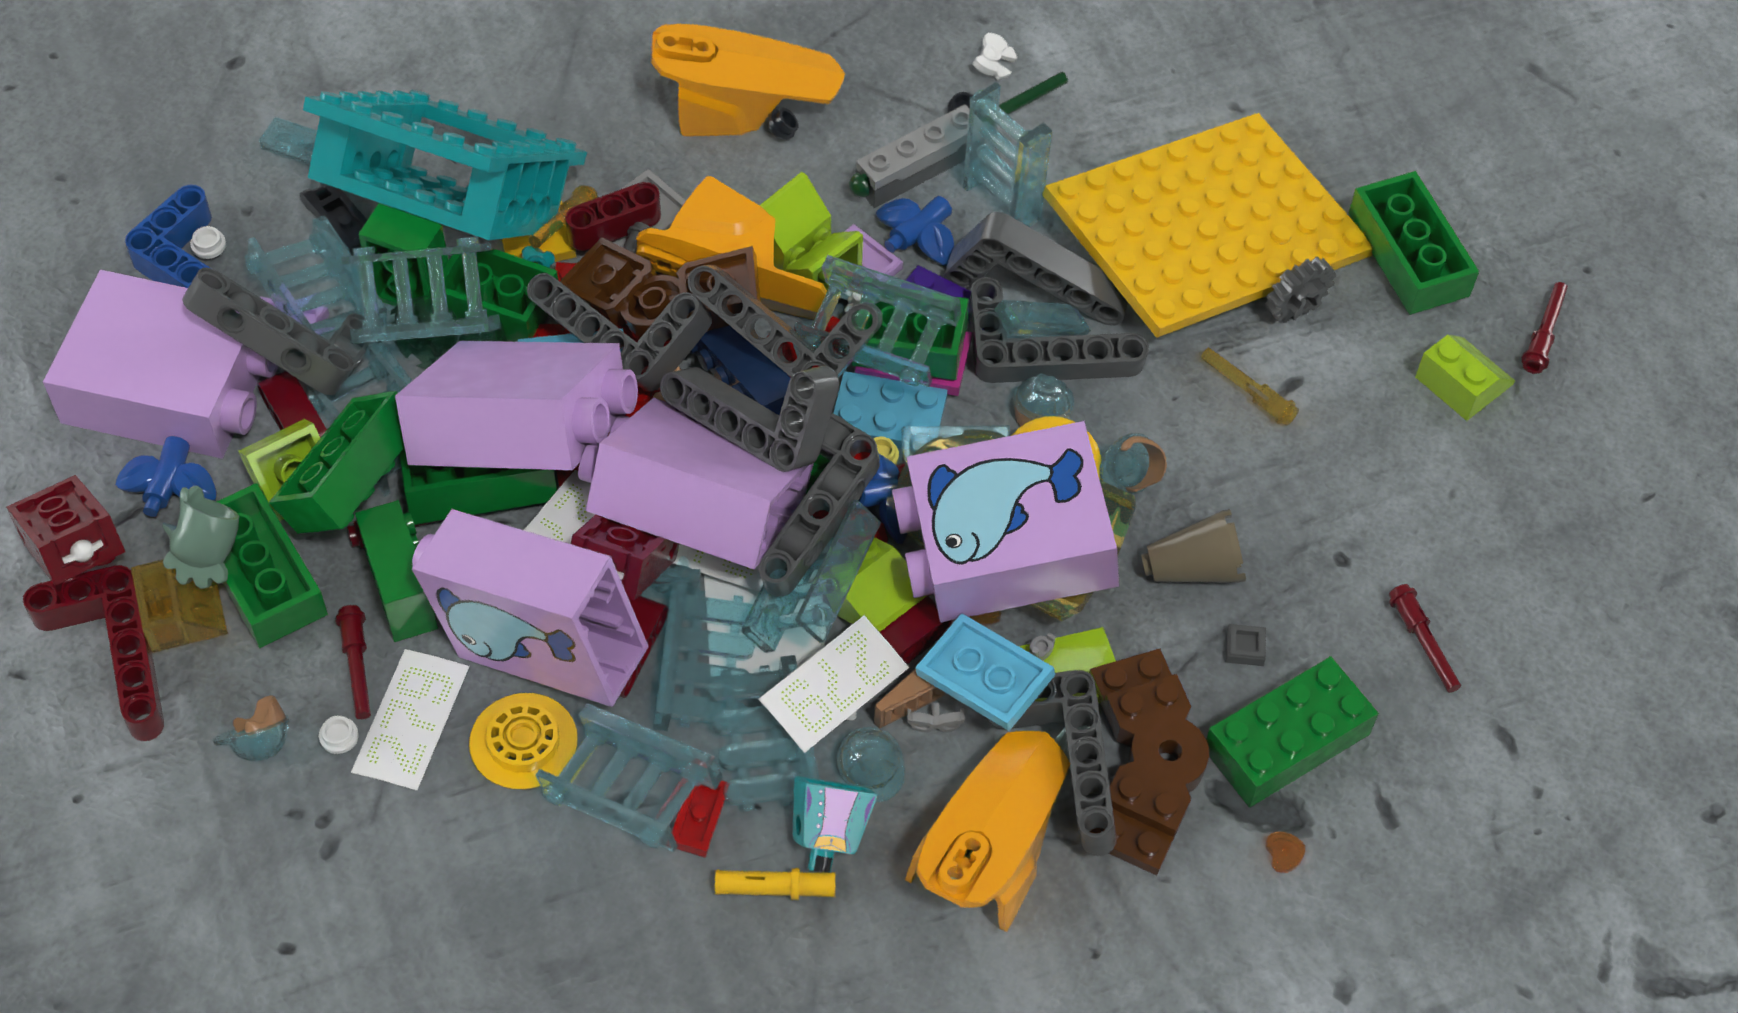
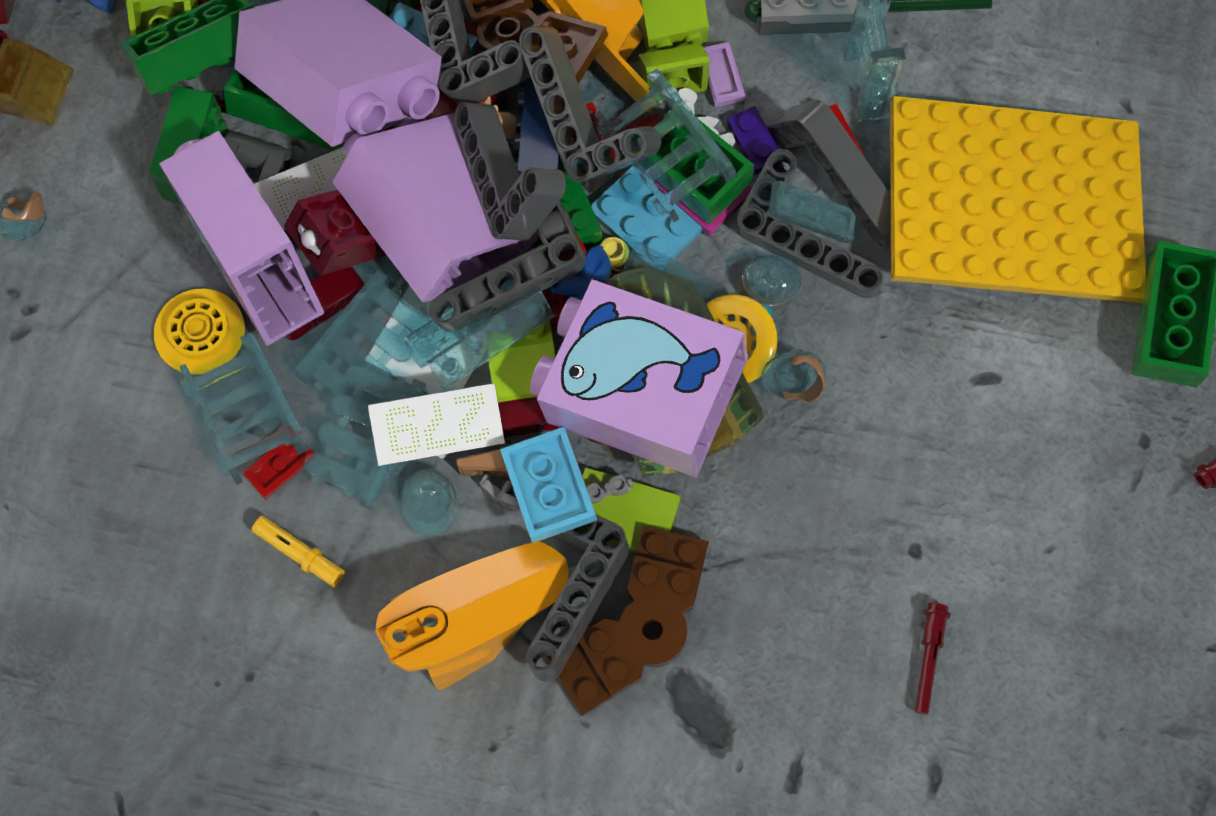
camera: 35 degrees right, 15 degrees up
(200, 539) = (56, 51): sand green piece -> none
(267, 573) = (96, 86): green brick -> none
(338, 735) = (75, 250): white plate -> none
(351, 621) = (130, 185): dark red pin -> none
(410, 719) = (135, 266): white sticker -> none
(829, 818) = (363, 527): teal torso -> none
(919, 226) = (778, 73): blue plant -> none
(1197, 553) = (795, 482): dark tan cone -> none
(1246, 645) = (783, 576): dark grey tile -> none
(1277, 406) = (953, 378): clear yellow pin -> none
(1286, 851) = (692, 759): clear orange piece -> none
(1290, 731) = (761, 669): green brick -> none
(1300, 289) = (1045, 304): dark grey gear -> none
(1462, 375) = (1135, 454): lime slope -> none

